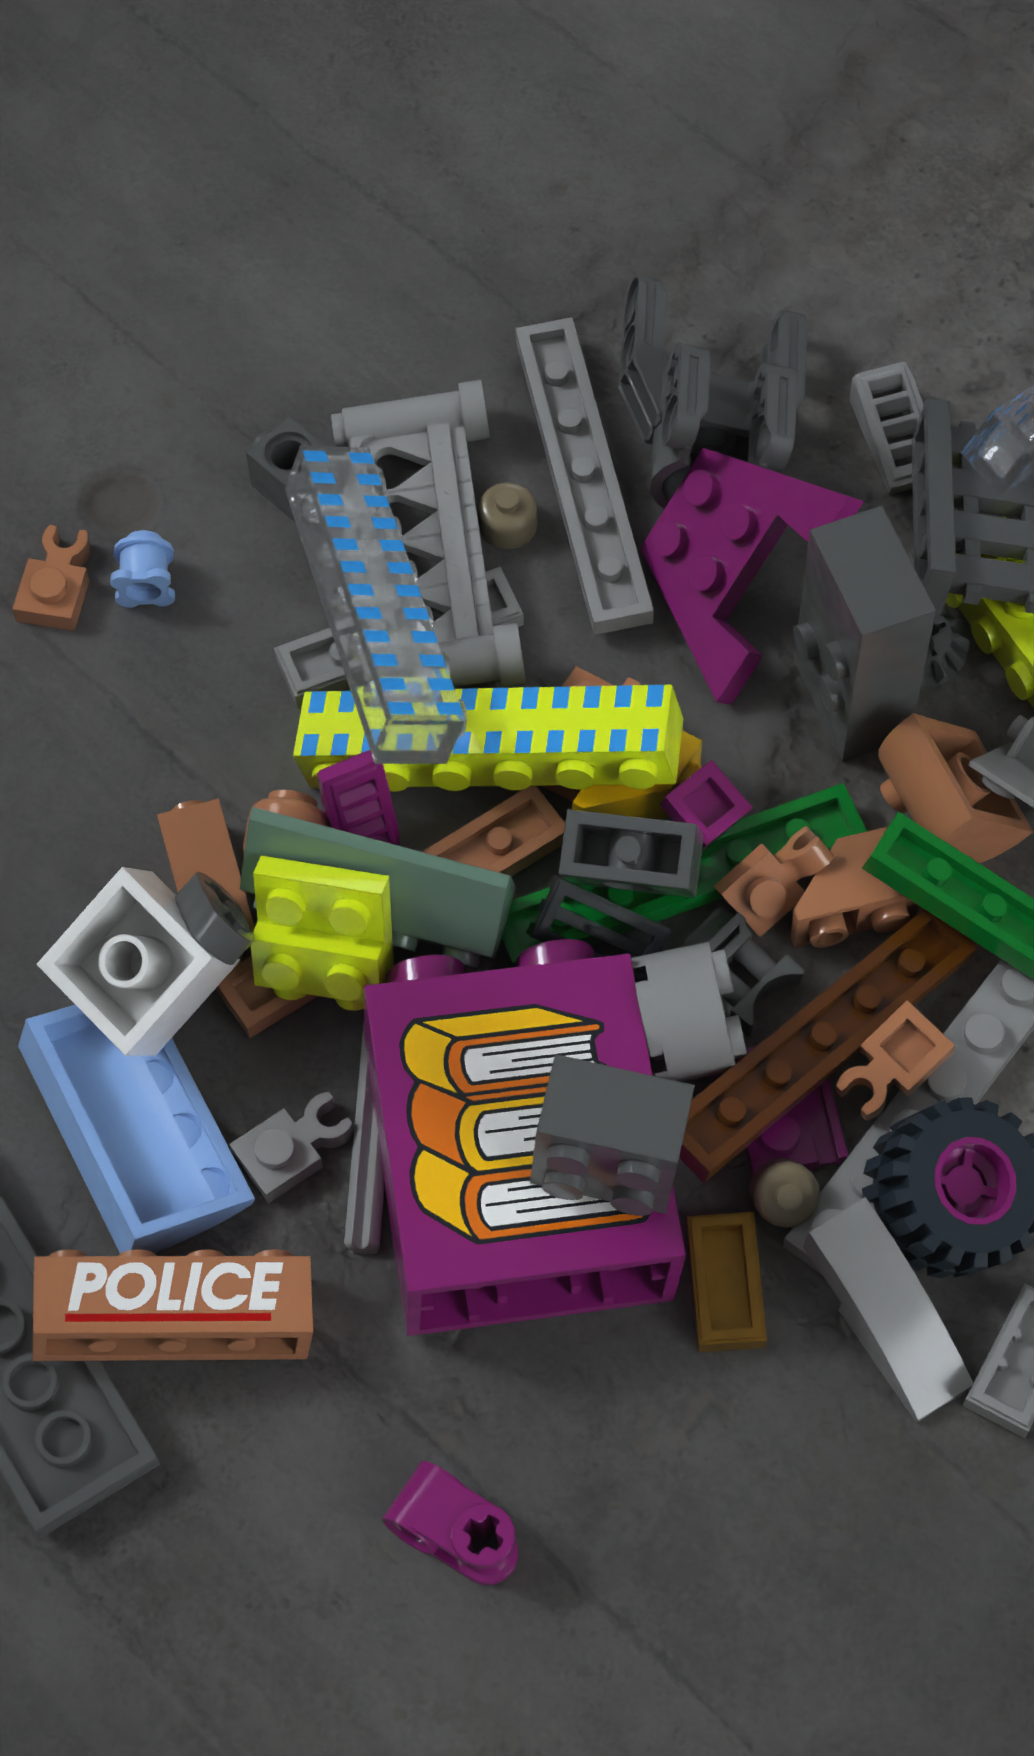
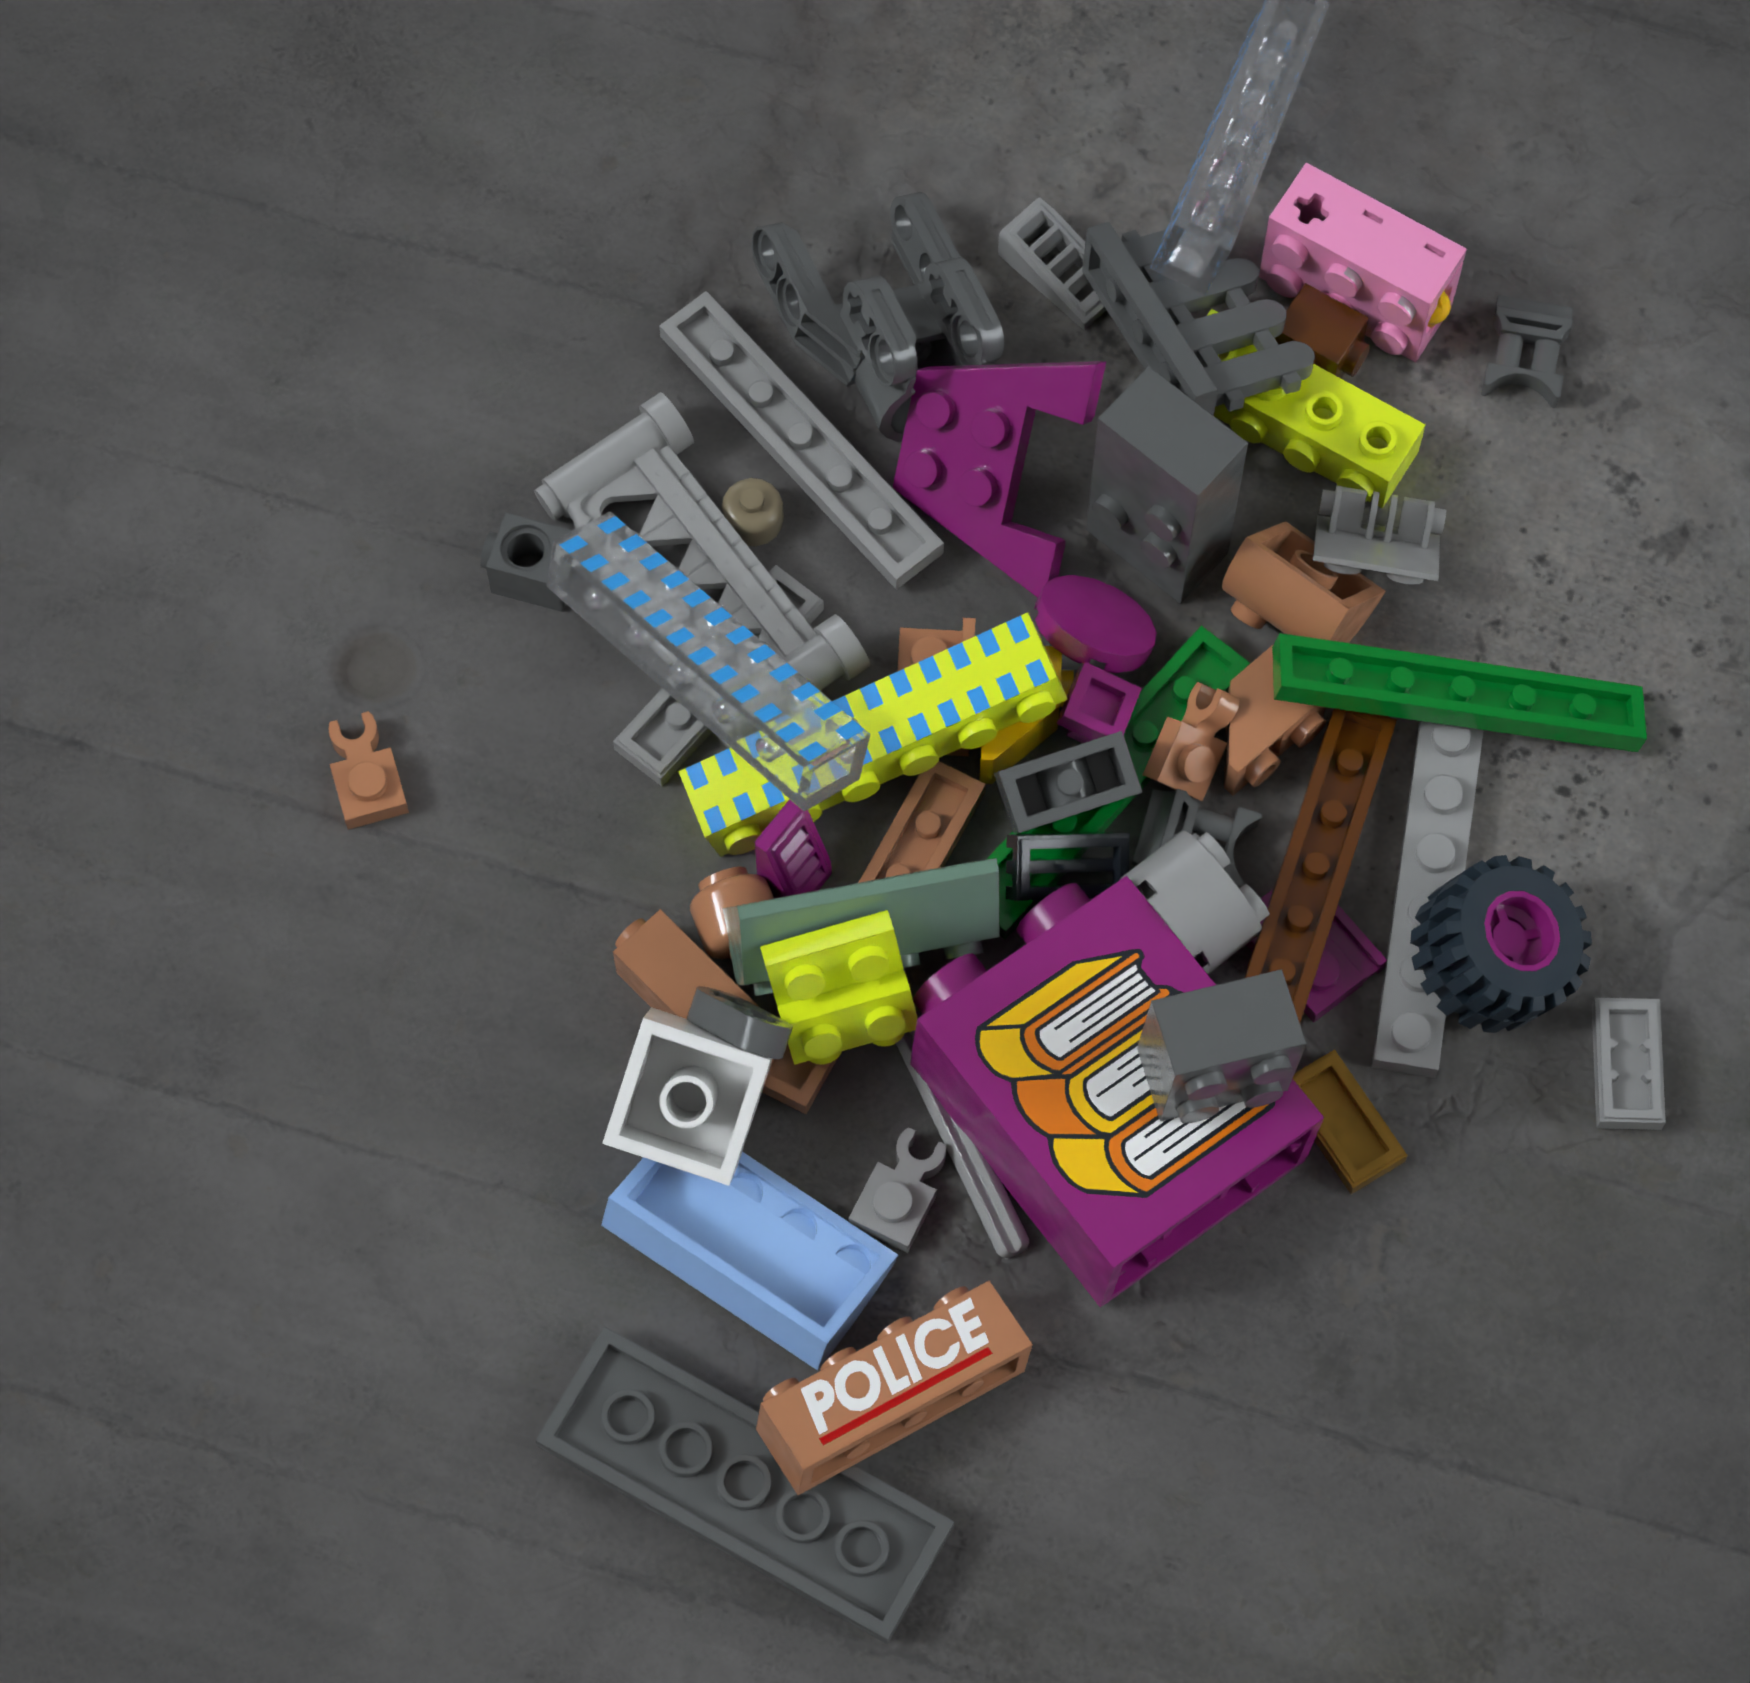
camera: 30 degrees left, 5 degrees up
(143, 570) = (448, 724): light blue brick -> none
(444, 1517) = (1229, 1446): magenta piece -> none
(746, 736) = (1094, 622): none -> magenta tile
(784, 1192) = (1352, 1019): dark tan piece -> none
(888, 1309) = (1496, 1077): light grey slope -> none
(900, 1054) = (1390, 850): nougat plate -> none

